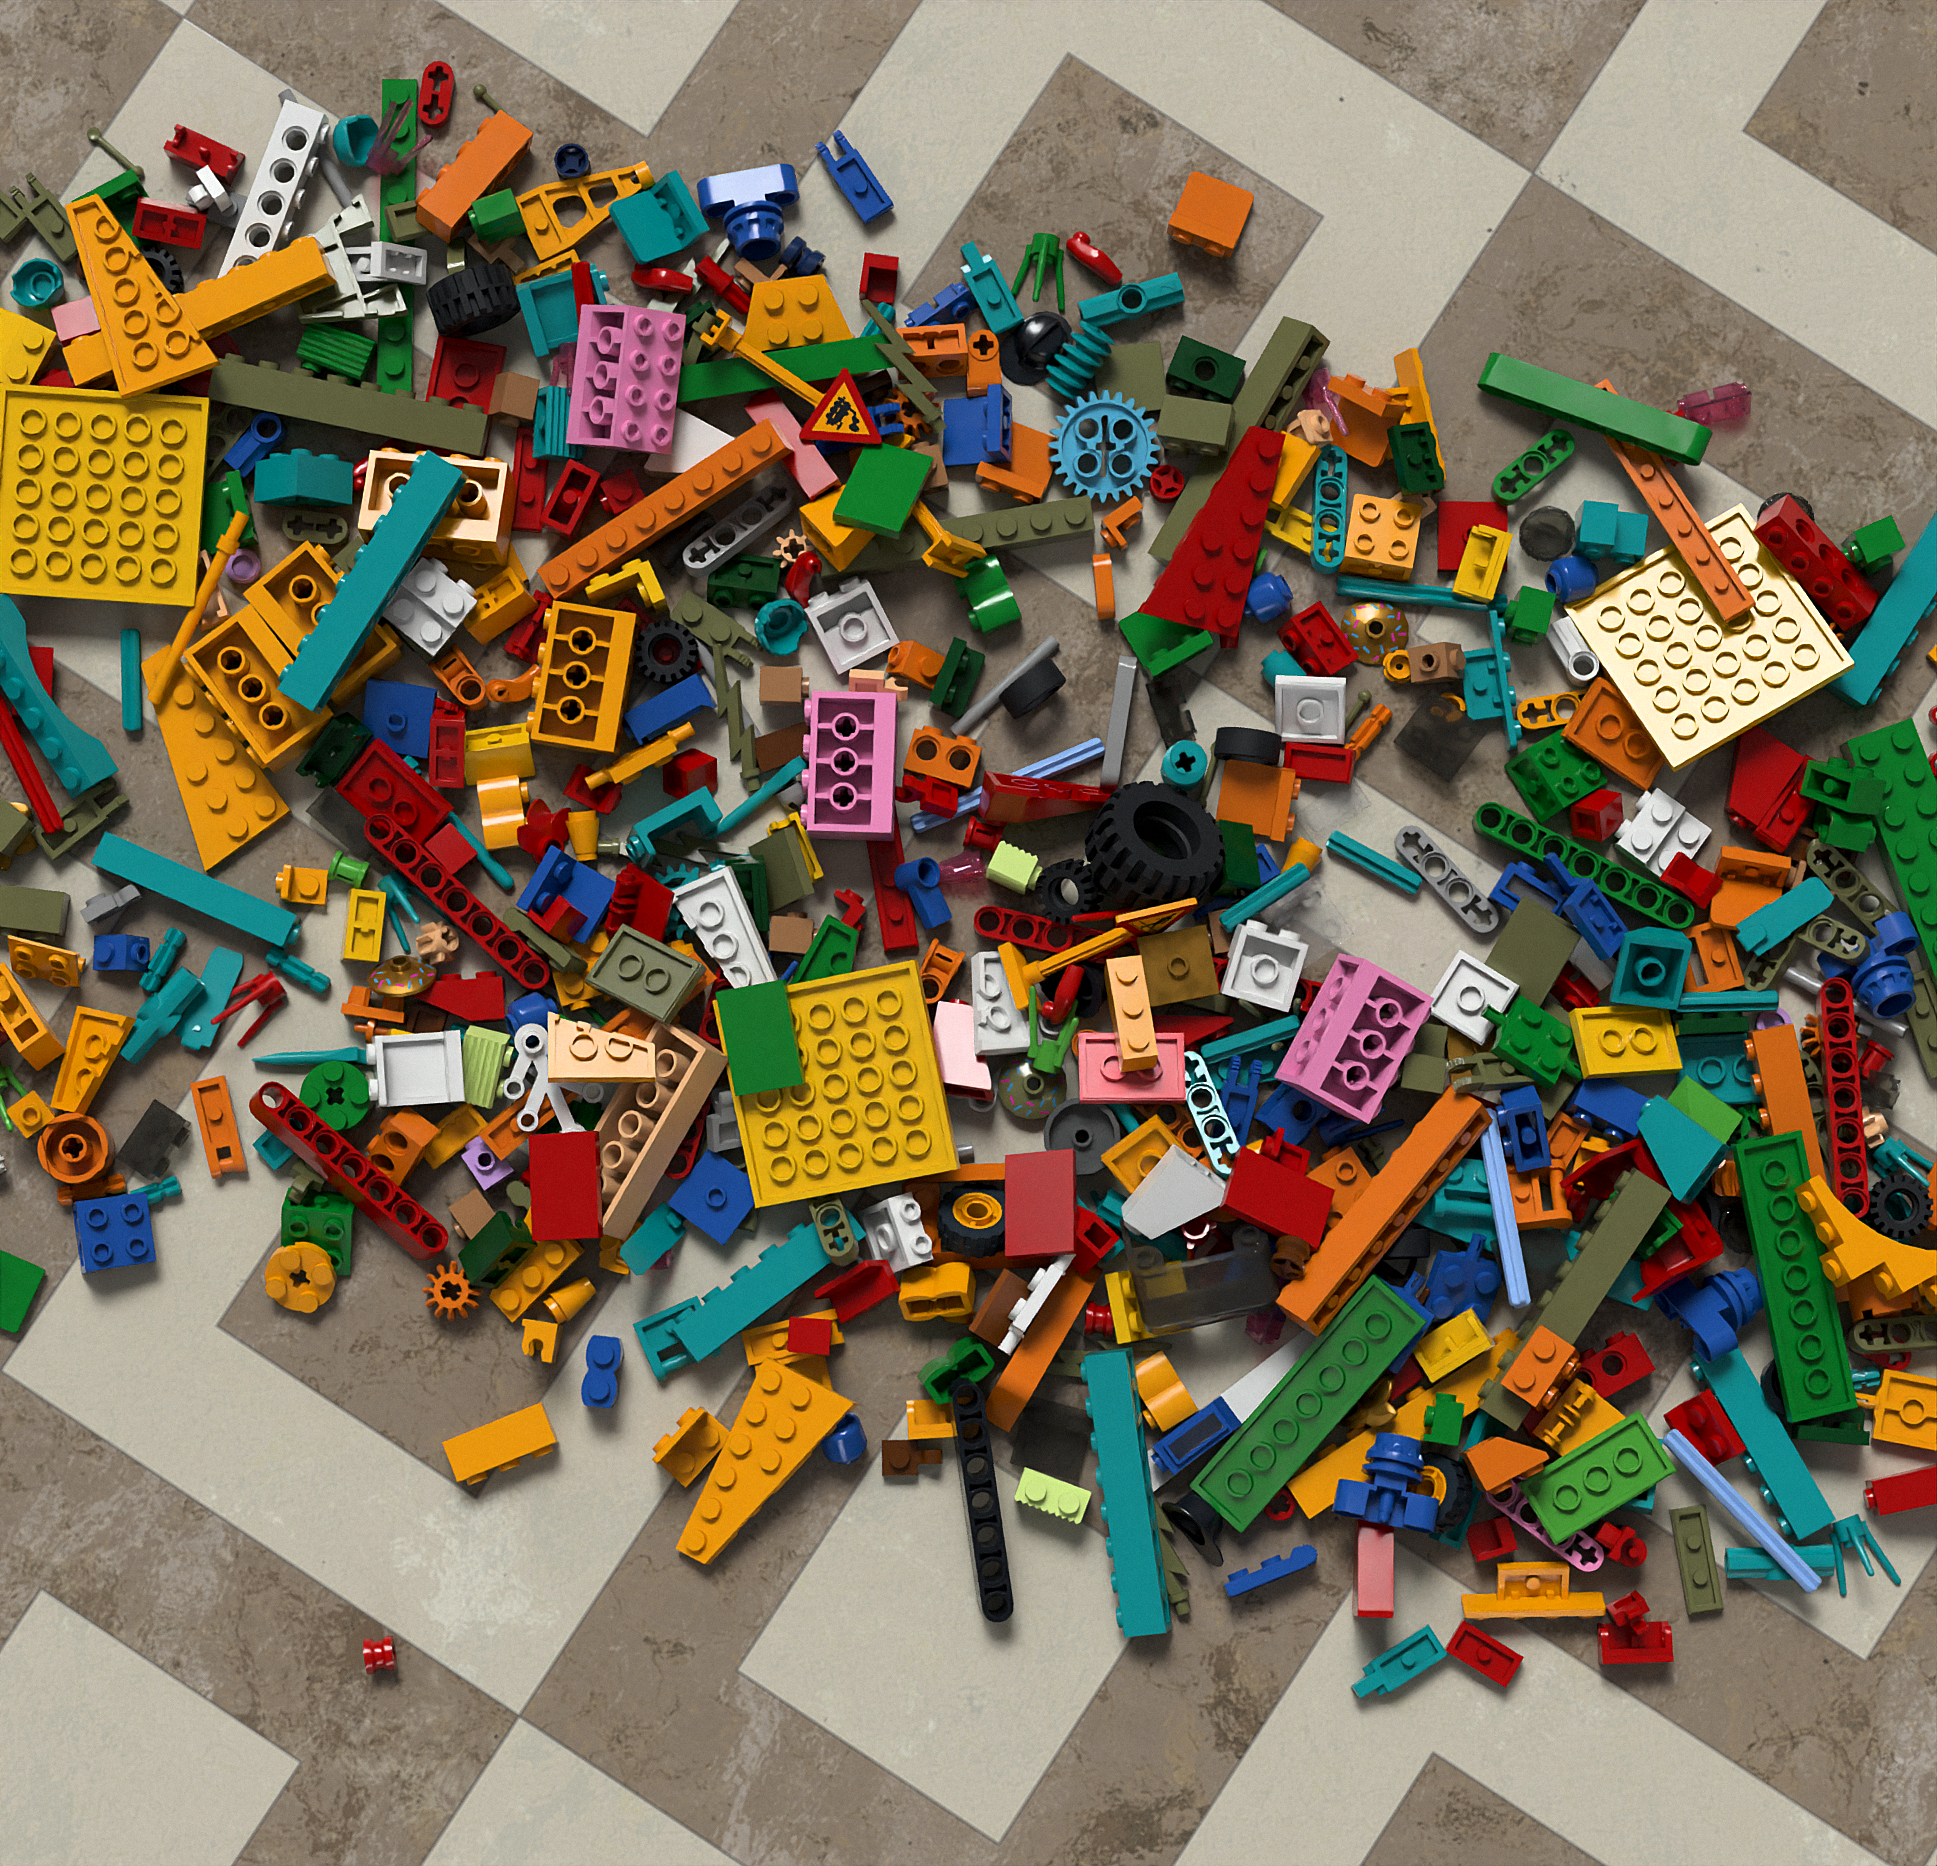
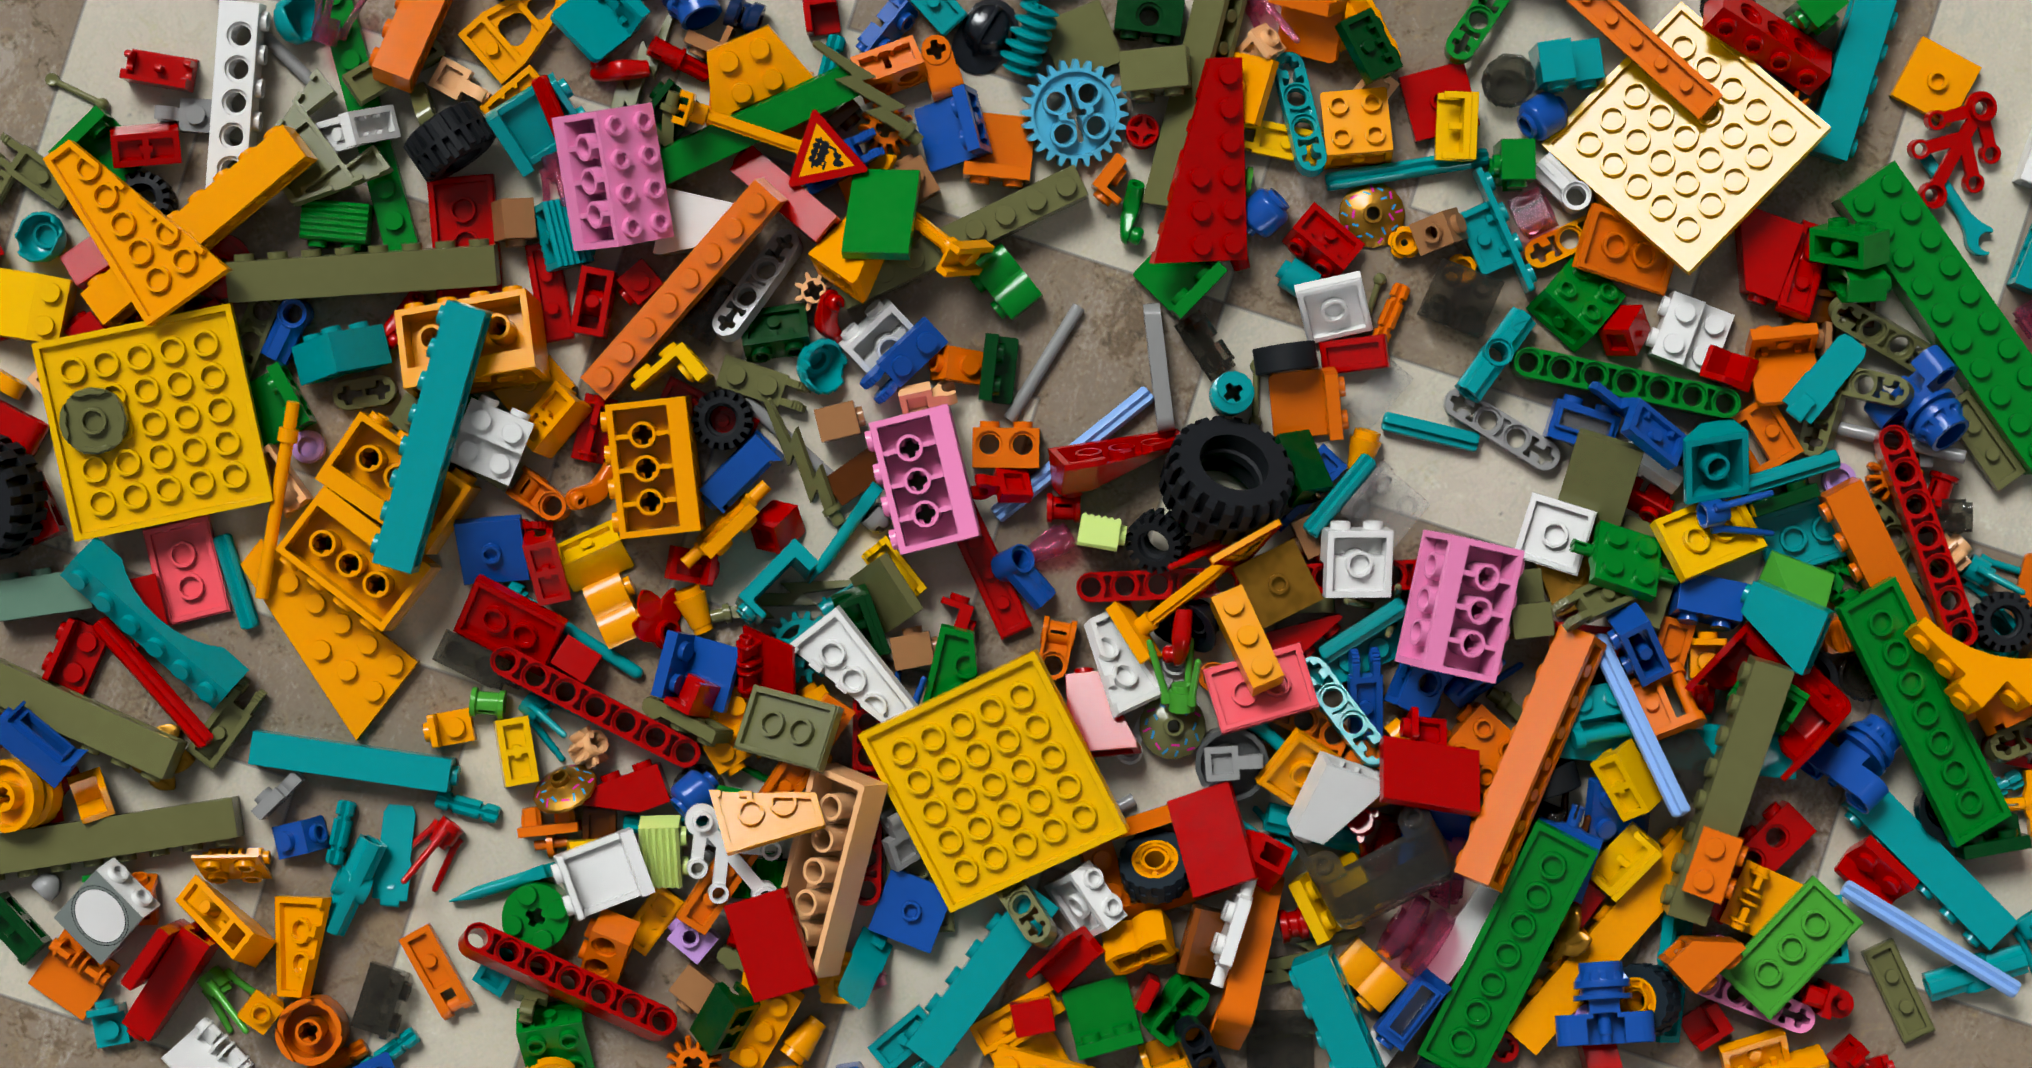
camera: 10 degrees left, 5 degrees up
(39, 476) = (94, 420): none -> olive tile
(86, 654) = (187, 569): none -> coral tile
(209, 191) = (174, 106): white tile -> none
(335, 750) = (443, 596): dark green hinge -> none
(497, 217) = (449, 56): green brick -> none
(760, 1037) = (911, 758): green tile -> none
(866, 641) = (905, 358): none -> blue hinge
(879, 1358) = (1102, 1016): none -> green bracket
(931, 1344) = (1146, 992): none -> red tile
(1032, 688) = (1071, 359): black tyre -> none
(1075, 1130) = (1225, 763): none -> light grey plate
(1103, 586) = (1110, 244): orange beam -> none
(1133, 561) = (1131, 212): none -> green arm
(1219, 1360) = (1415, 935): none -> clear pink wheel
(1290, 1257) = (1456, 827): reddish brown wheel -> none
(1443, 1420) = (1636, 934): green brick -> none
(1474, 790) = (1484, 369): none -> teal piece
(1475, 1261) = (1627, 780): none -> yellow hinge
(1536, 671) = (1533, 212): none -> clear pink brick
(1639, 1018) = (1716, 512): none -> blue plant

